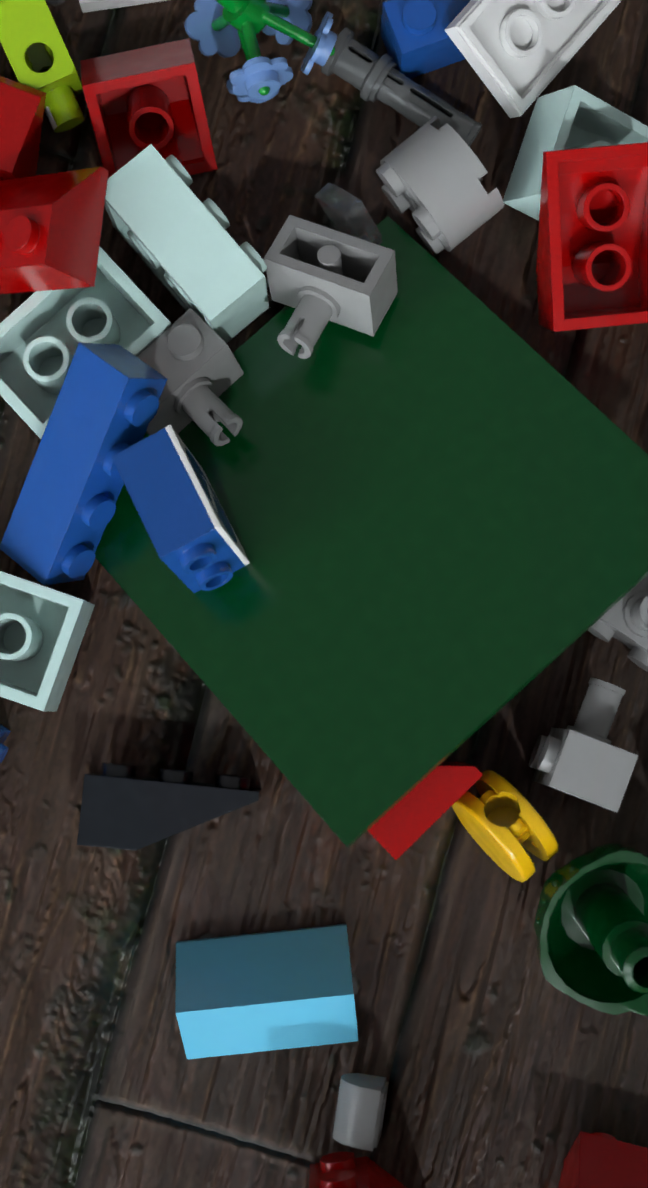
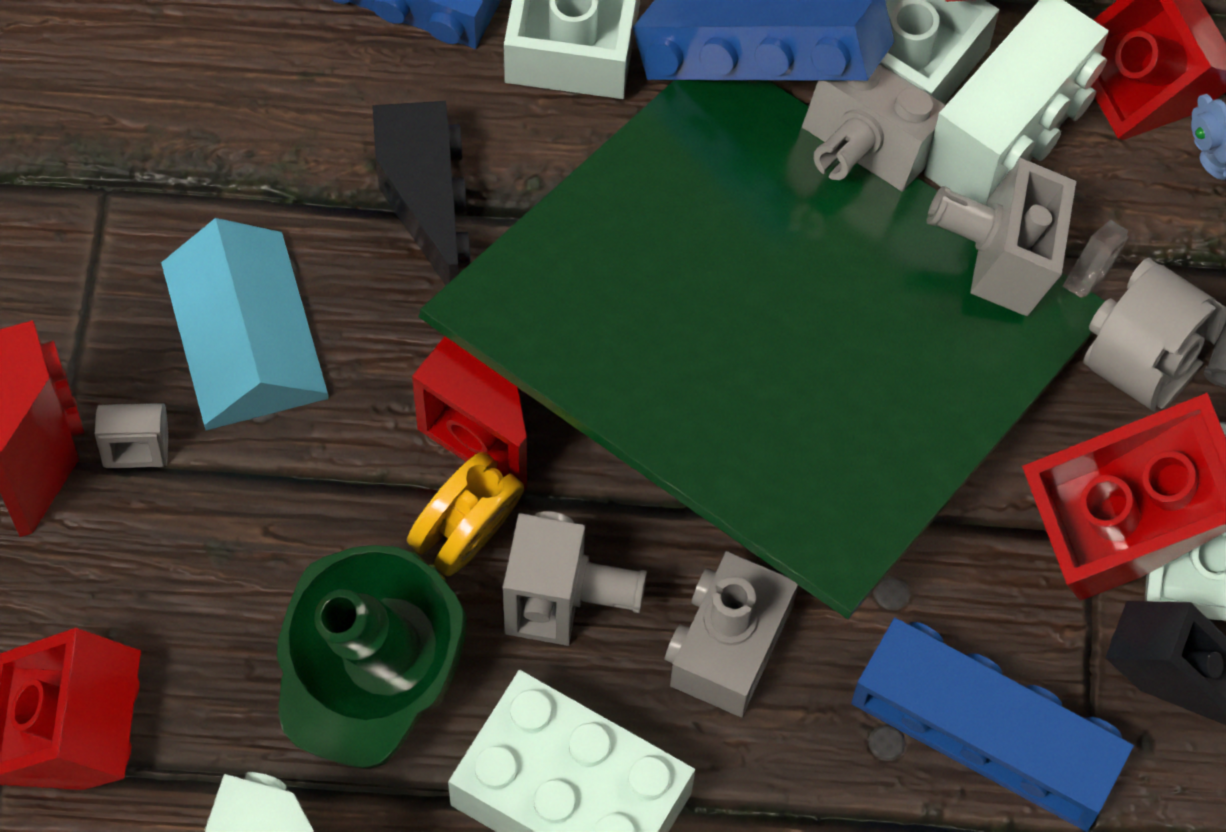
camera: 75 degrees right, 20 degrees down
(180, 511) = (735, 121): blue piece -> none

